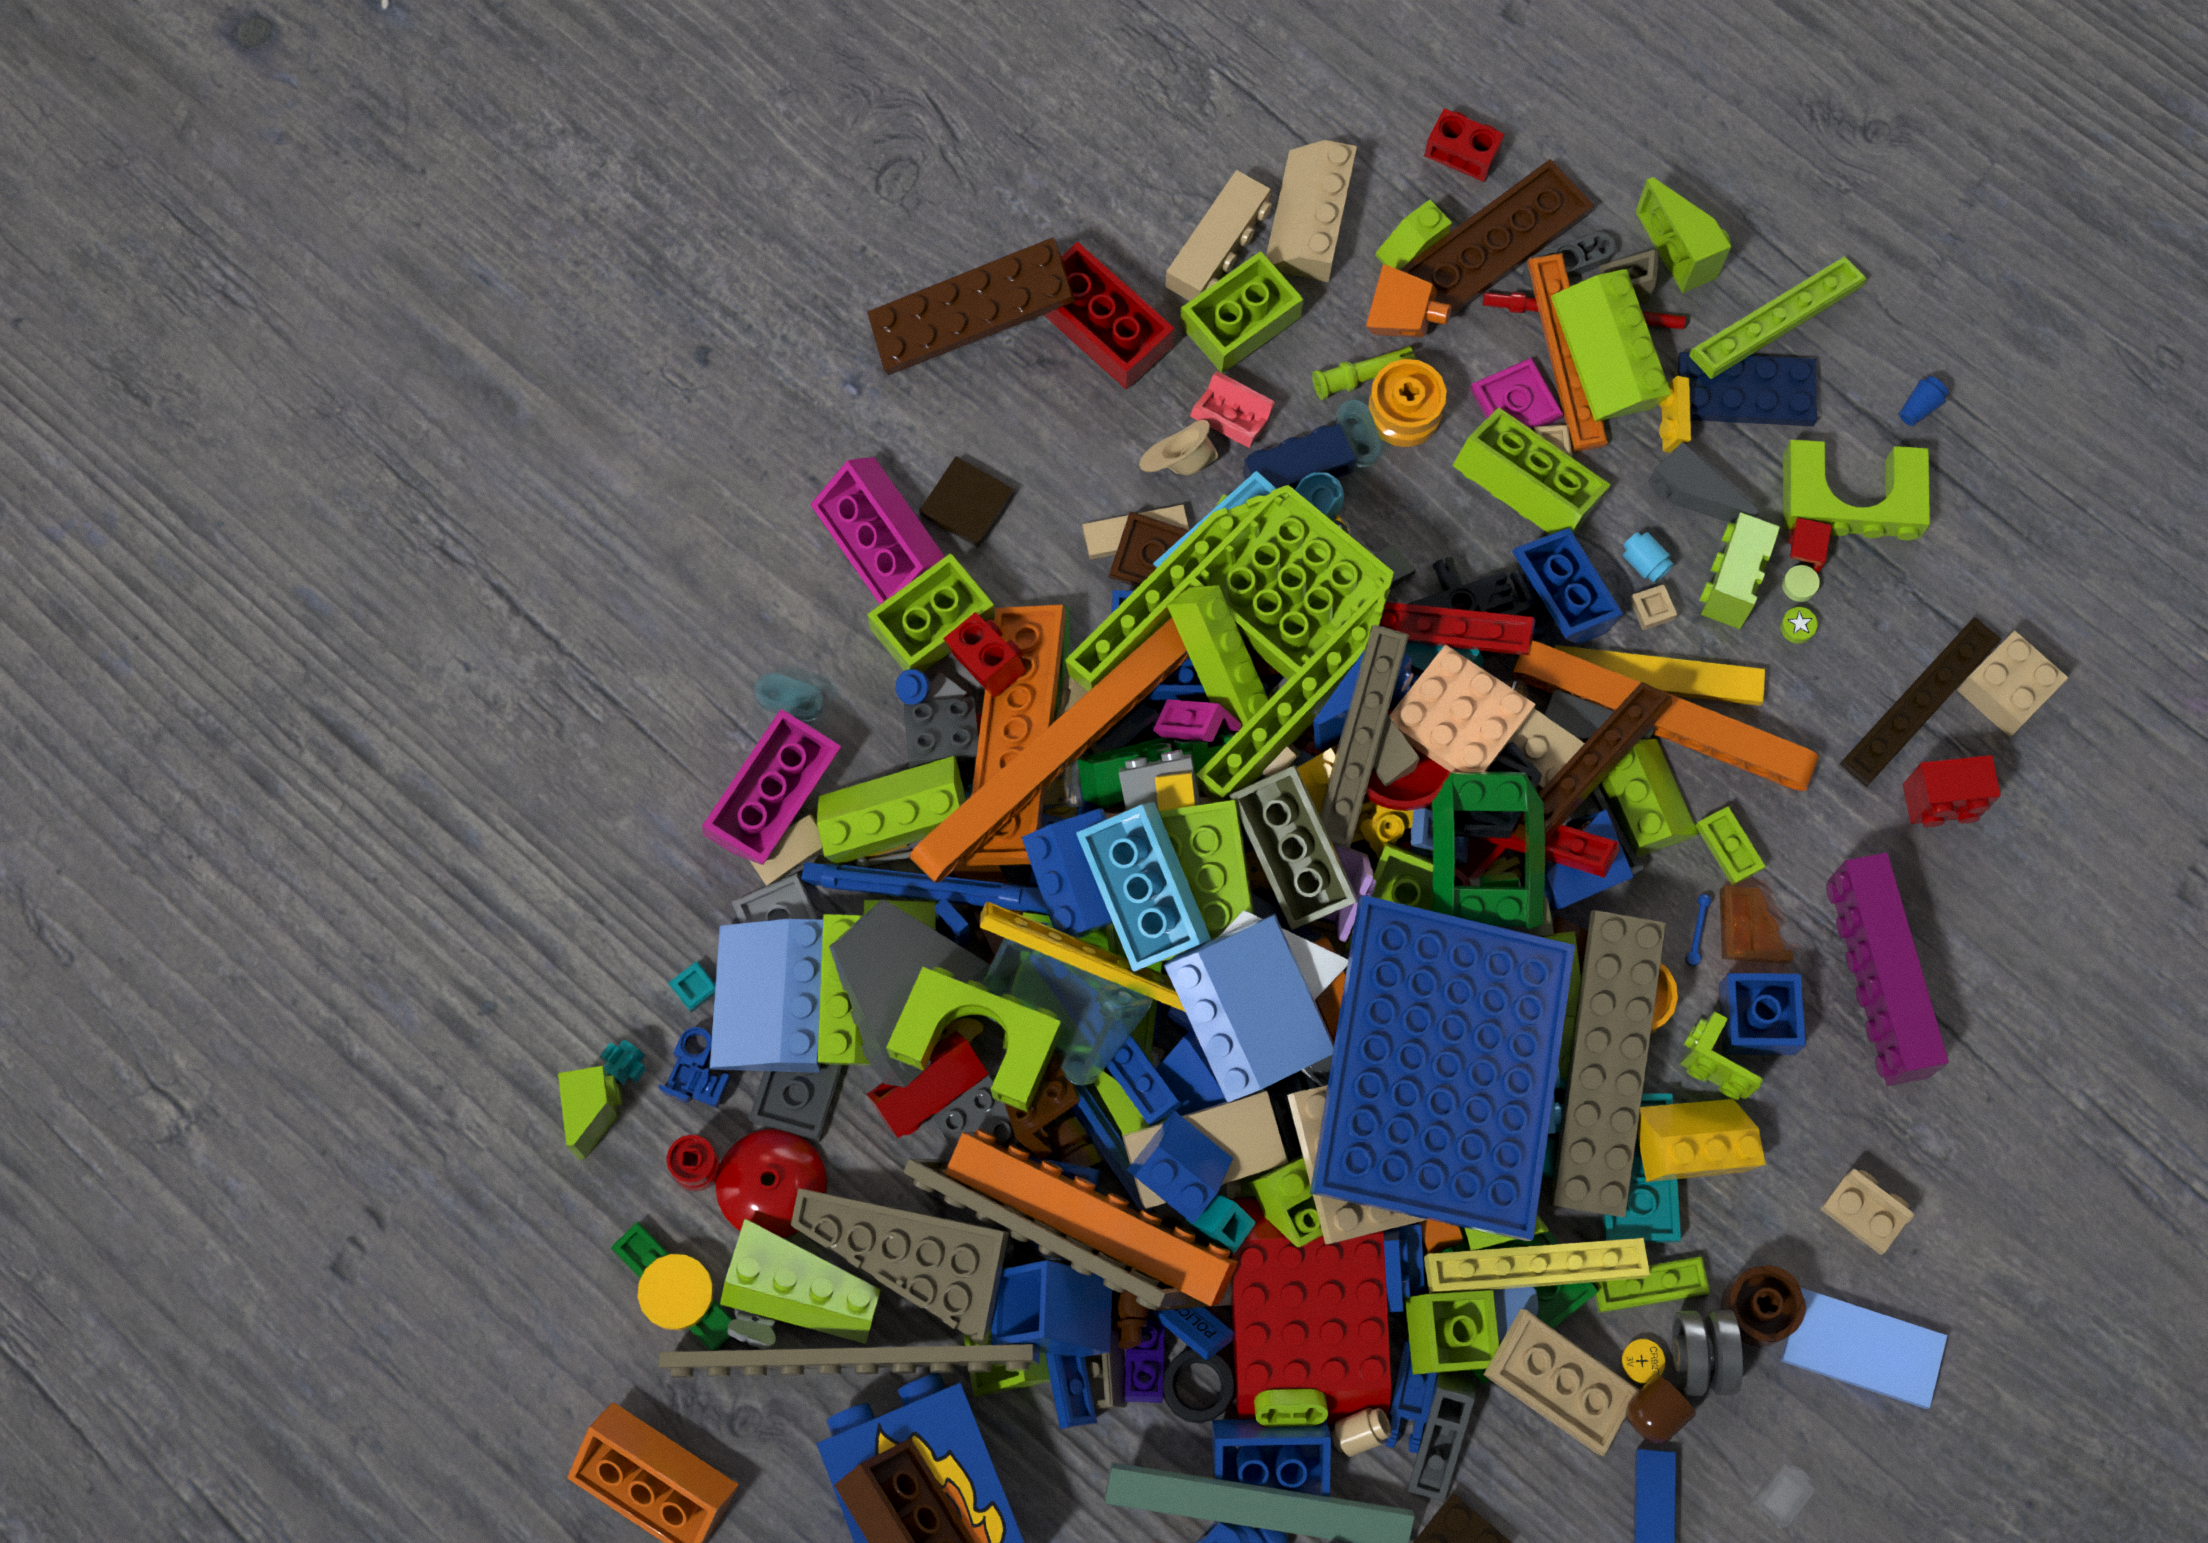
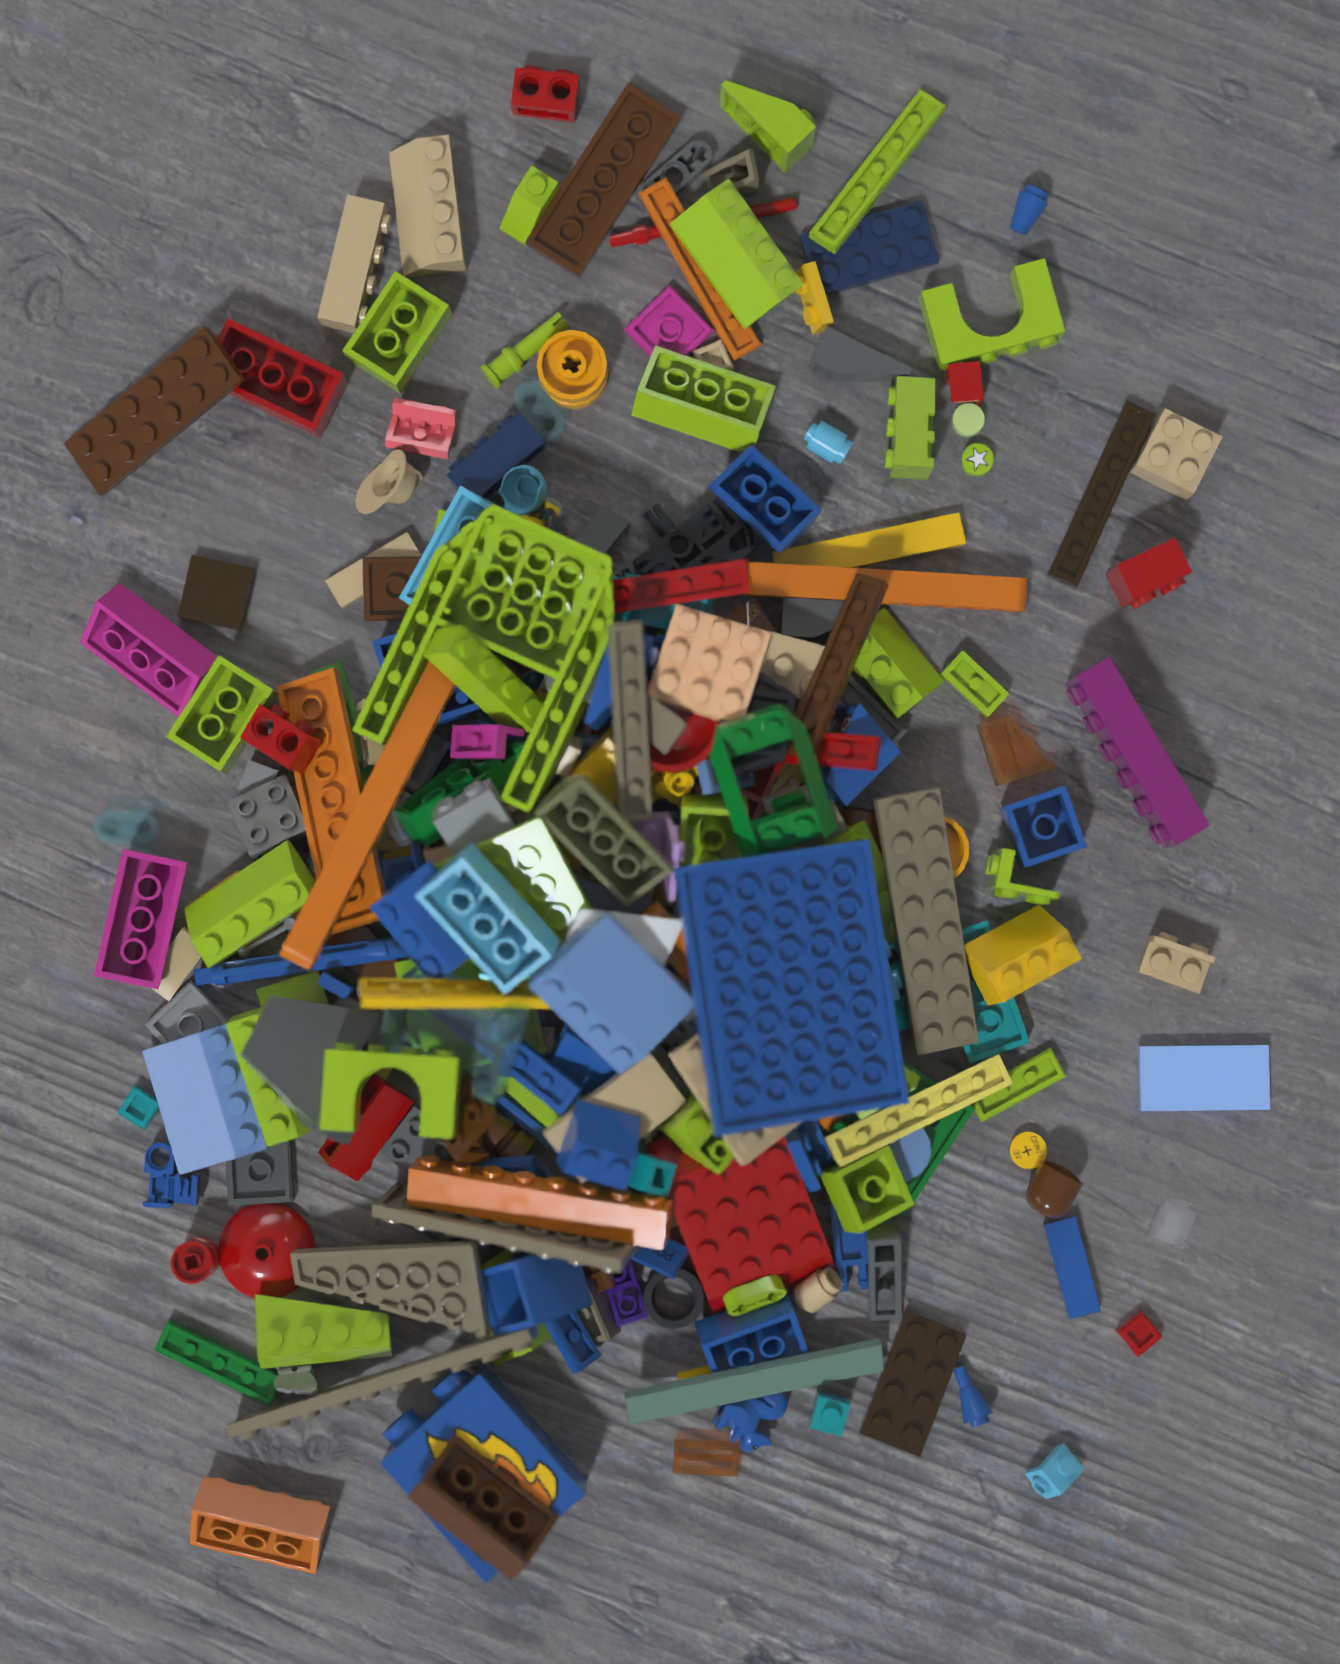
camera: 15 degrees left, 15 degrees up
(588, 1107) = (89, 1248): lime slope -> none
(623, 1062) = (105, 1195): teal gear -> none
(675, 1292) = (220, 1370): yellow tile -> none
(912, 686) = (229, 785): blue plate -> none
(1174, 791) = (486, 822): yellow tile -> none
(1404, 305) = (541, 276): orange torso -> none
(1561, 1382) = (966, 1196): tan tile -> none
(1653, 607) = (846, 487): tan plate -> none
(1693, 958) = (971, 792): blue hinge -> none
(1707, 1352) = (1077, 1133): flat silver wheel -> none
(1782, 1300) = (1120, 1092): reddish brown brick -> none

